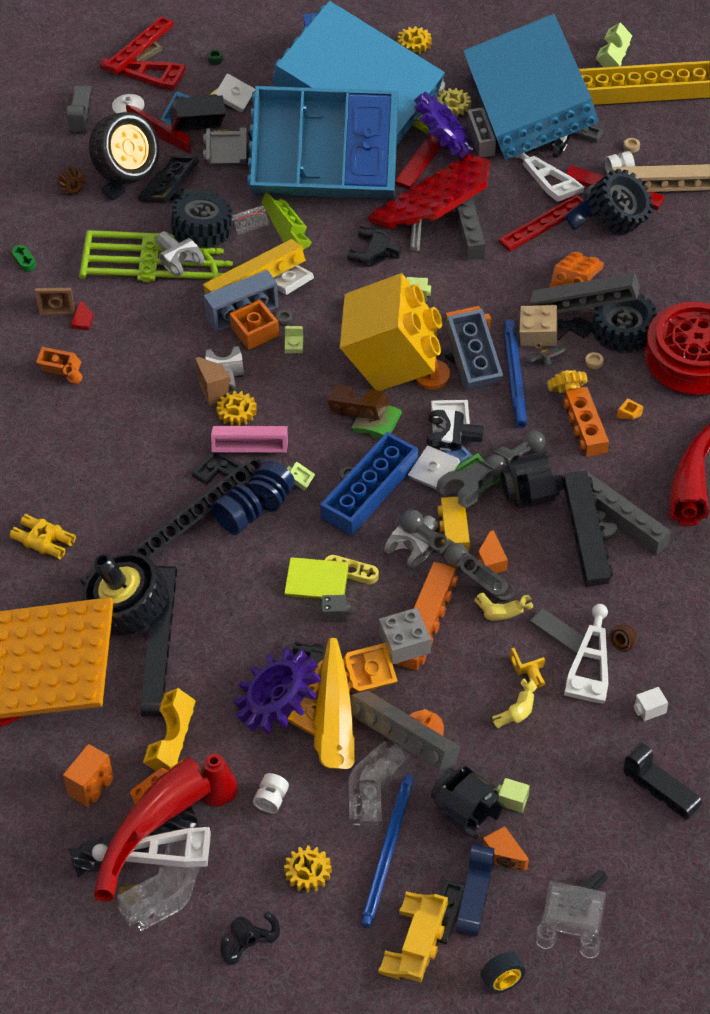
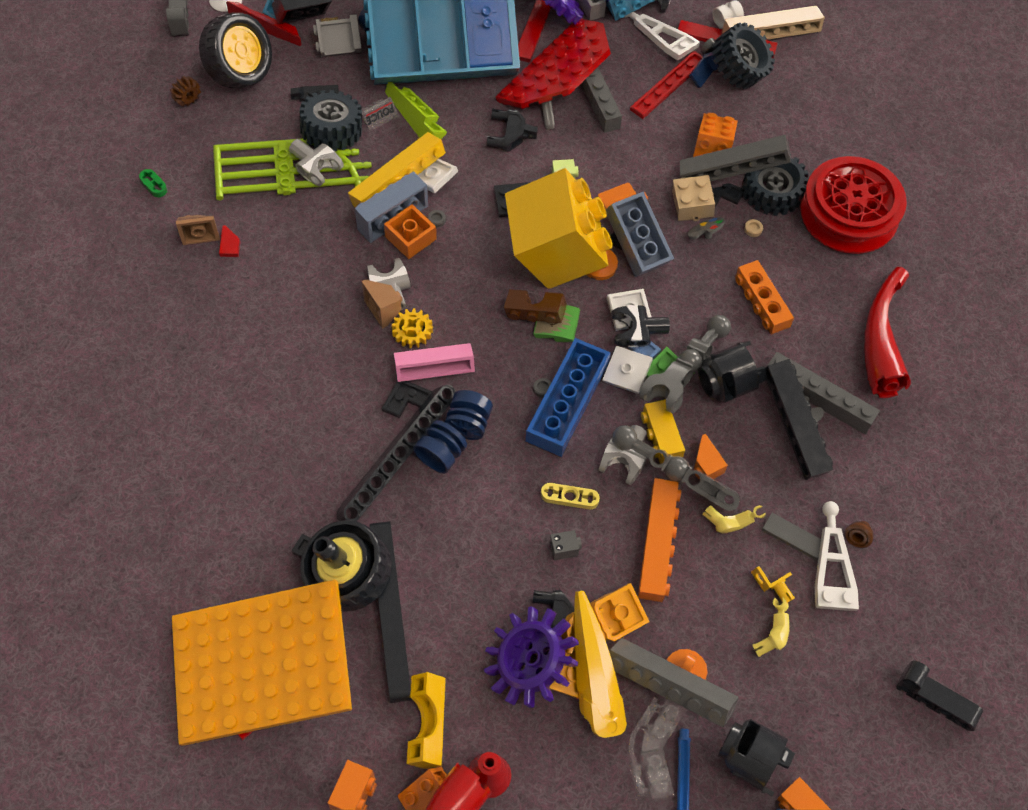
camera: 15 degrees left, 10 degrees up
(42, 536) = (242, 513): yellow pin -> none
(60, 363) = (218, 301): orange hinge -> none
(113, 190) = (231, 96): black plate -> none
(168, 179) = (286, 78): black tile -> none
(271, 792) = (548, 768): white wheel -> none
(293, 339) = (453, 242): yellowish green bracket -> none
(301, 475) = (495, 395): yellowish green bracket -> none
(316, 578) = (538, 513): neon yellow tile -> none
(405, 635) = (649, 572): light grey brick -> none
(513, 794) = (798, 734): yellowish green brick -> none
(515, 376) = (681, 253): blue piece -> none
(566, 381) = (737, 257): yellow gear -> none
(629, 410) = (802, 279): light orange slope -> none
(650, 704) = (905, 606): white brick -> none

